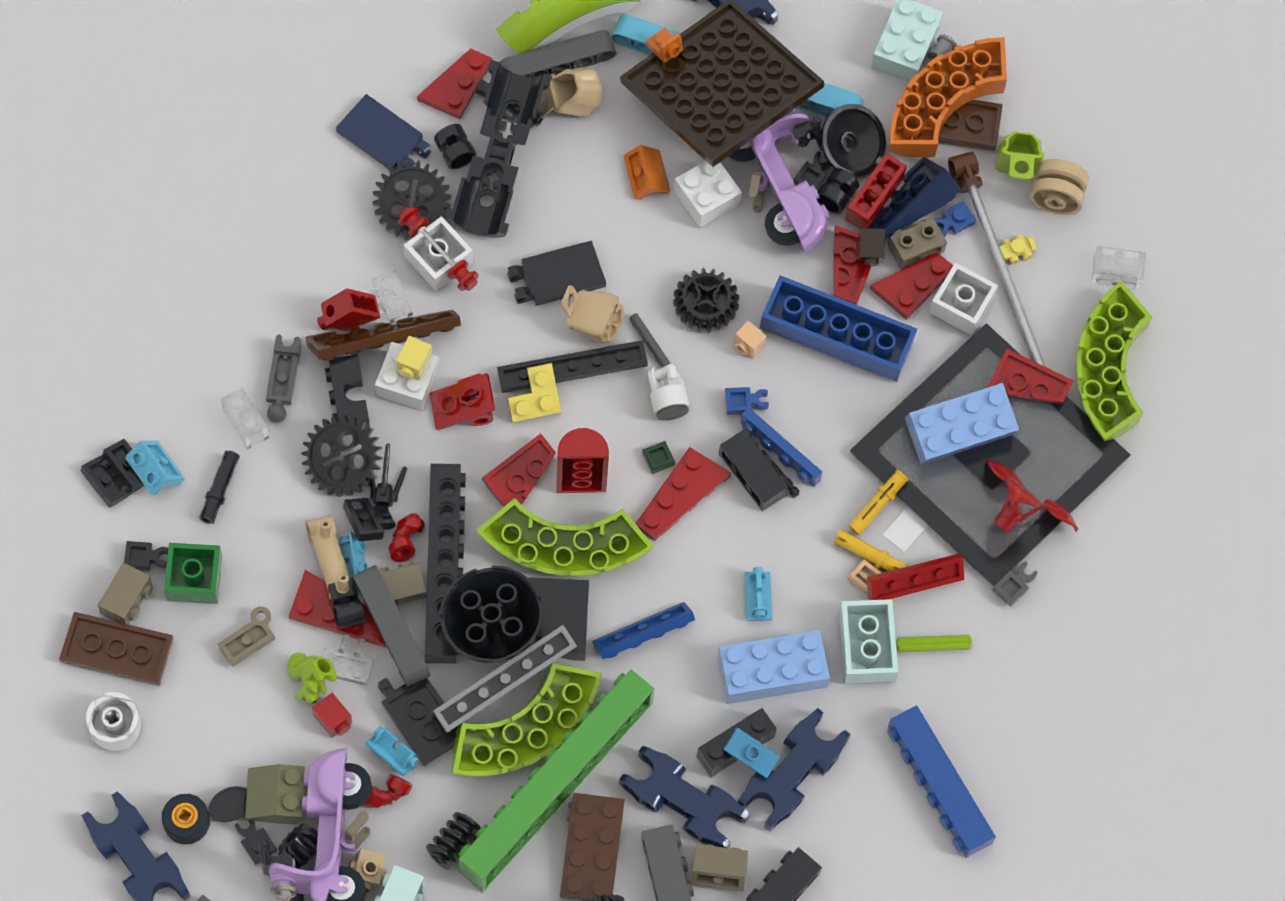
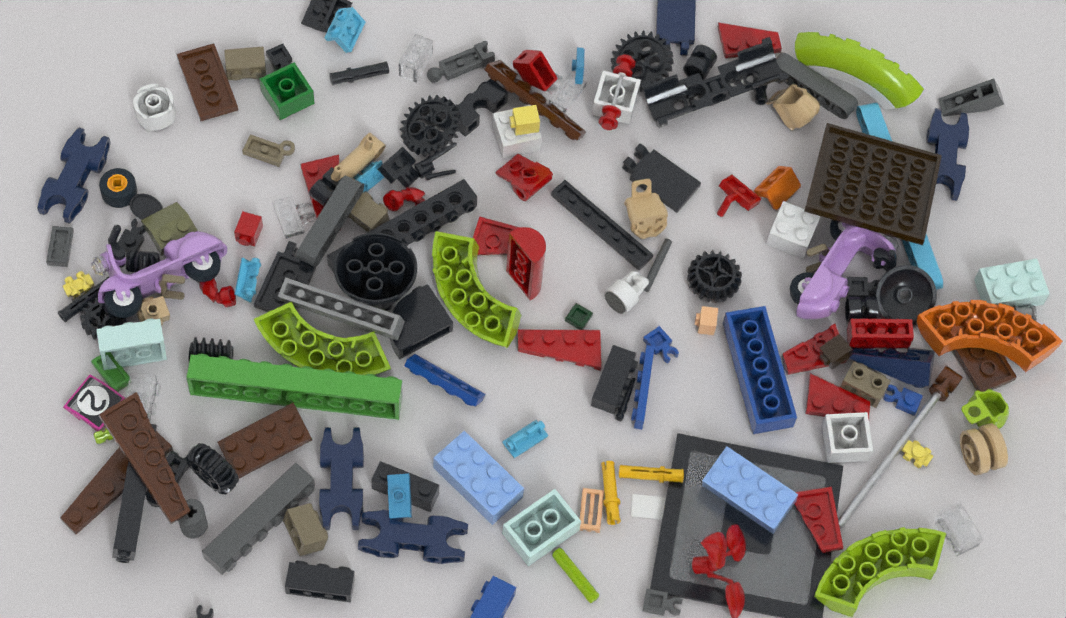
camera: 55 degrees right, 5 degrees down
(312, 672) = (266, 199): lime animal -> none
(375, 264) = (578, 65): none -> dark azure plate
(541, 400) = (563, 219): light yellow plate -> none
(630, 213) = (737, 192): none -> red plate
(665, 44) = (871, 134): orange bracket -> none
(916, 578) = (612, 531): red plate -> none

